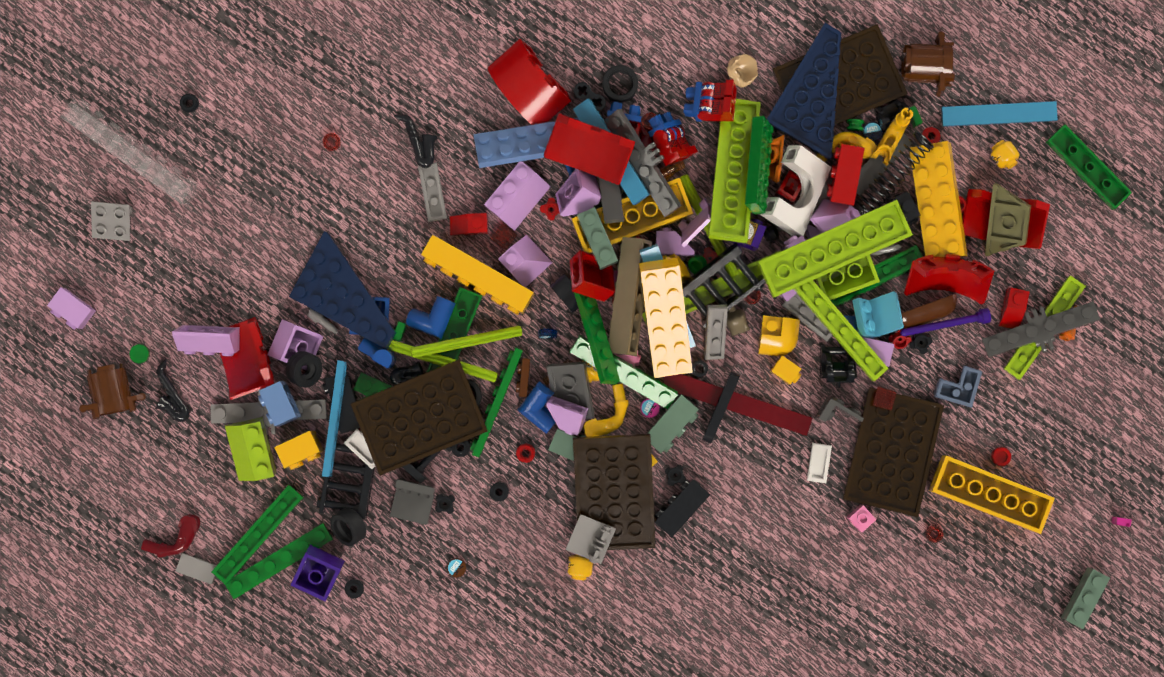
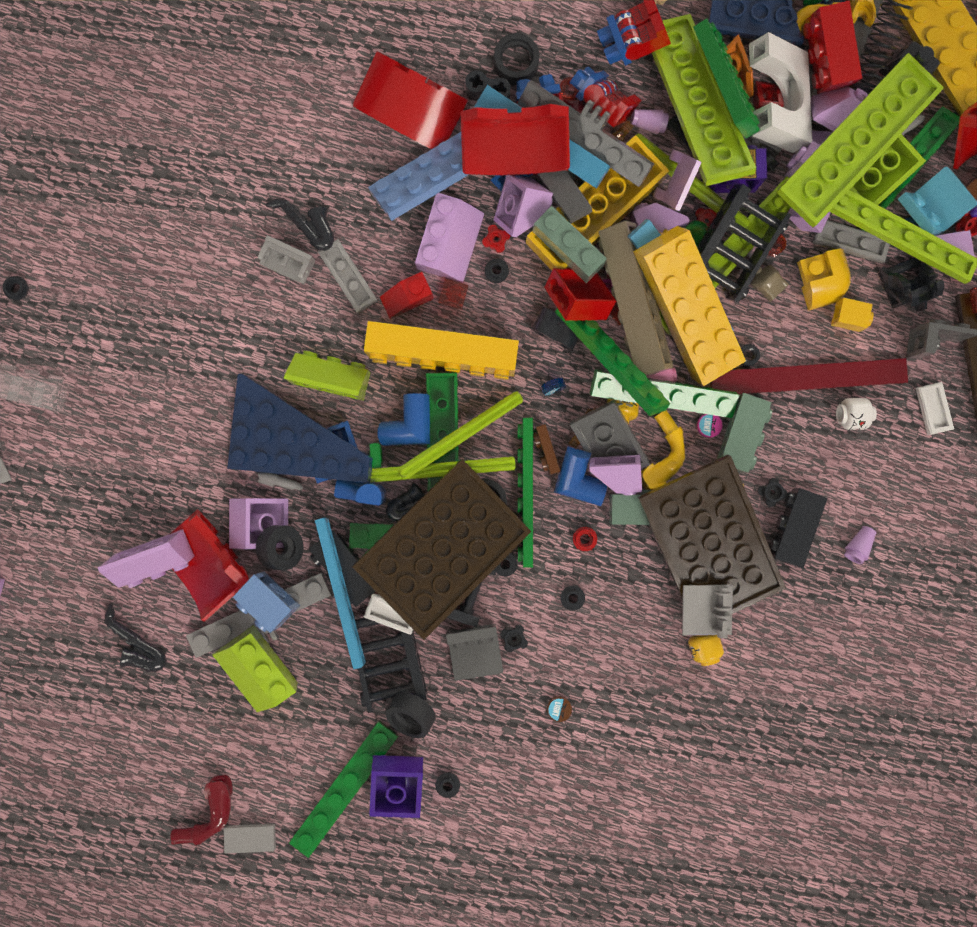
camera: 25 degrees left, 0 degrees up
(110, 392) = (56, 671): reddish brown container -> none
(139, 354) = (76, 609): green tile -> none
(257, 534) = (305, 769): green plate -> none
(301, 448) = (308, 652): yellow brick -> none
(326, 141) = (205, 273): clear red bush -> none
(389, 259) = (328, 375): none -> lime slope
(392, 163) = (286, 260): none -> light grey hinge
(525, 261) = (489, 311): lavender slope -> none
(537, 237) = (496, 278): none -> black plate
(698, 168) = (650, 120): none -> lavender cone
(715, 332) = (752, 301): light grey tile -> none
(721, 406) = (796, 389): black beam -> none
(722, 539) = (860, 546): none -> lavender cone
(758, 443) = (856, 413): none -> white head

